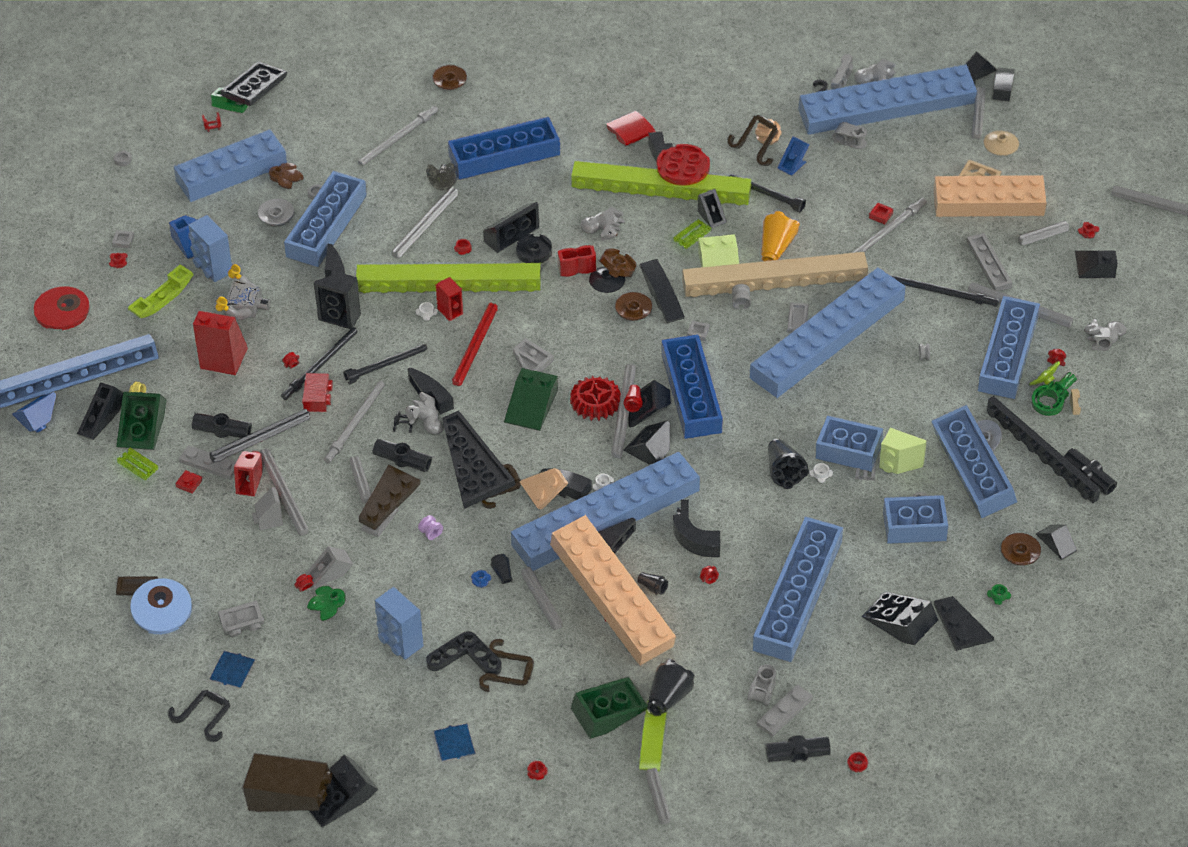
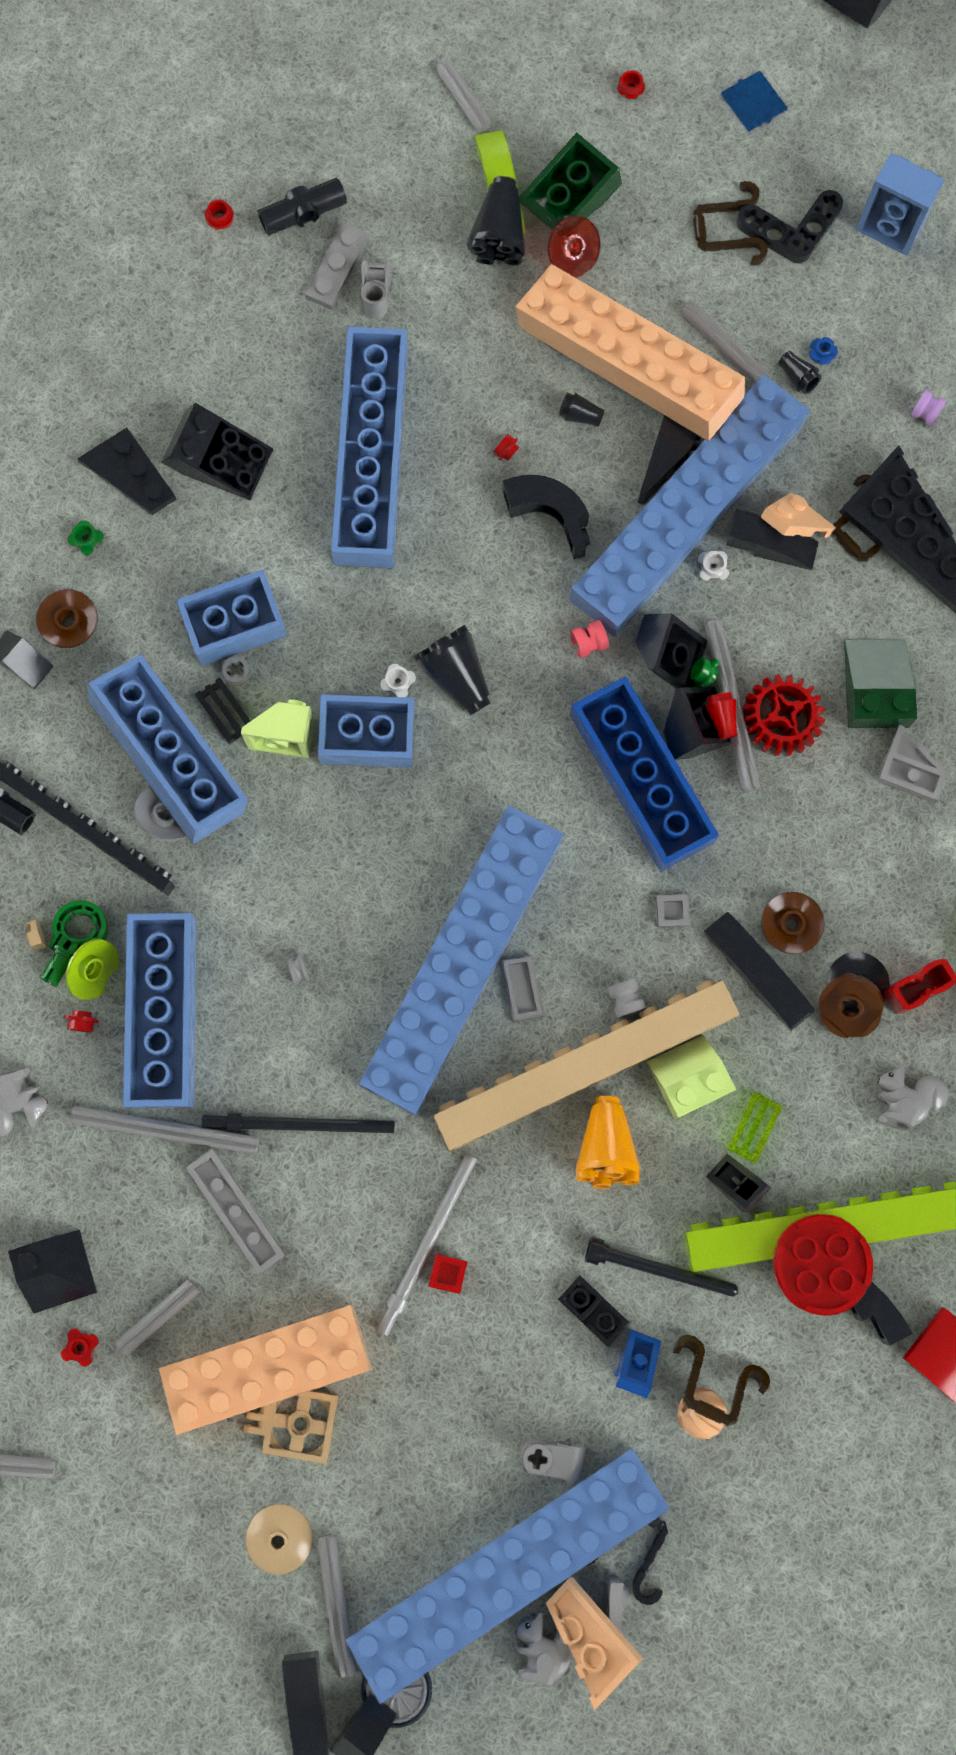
camera: 160 degrees right, 30 degrees up
(621, 671) = (584, 247): none -> clear red dish
(633, 427) = (704, 672): none -> green plate
(702, 463) = (590, 638): none -> coral wheel
(807, 184) = (594, 1311): none -> black slope
(854, 63) = (595, 1642): none -> light nougat wing
(934, 470) = (210, 690): none -> black tile

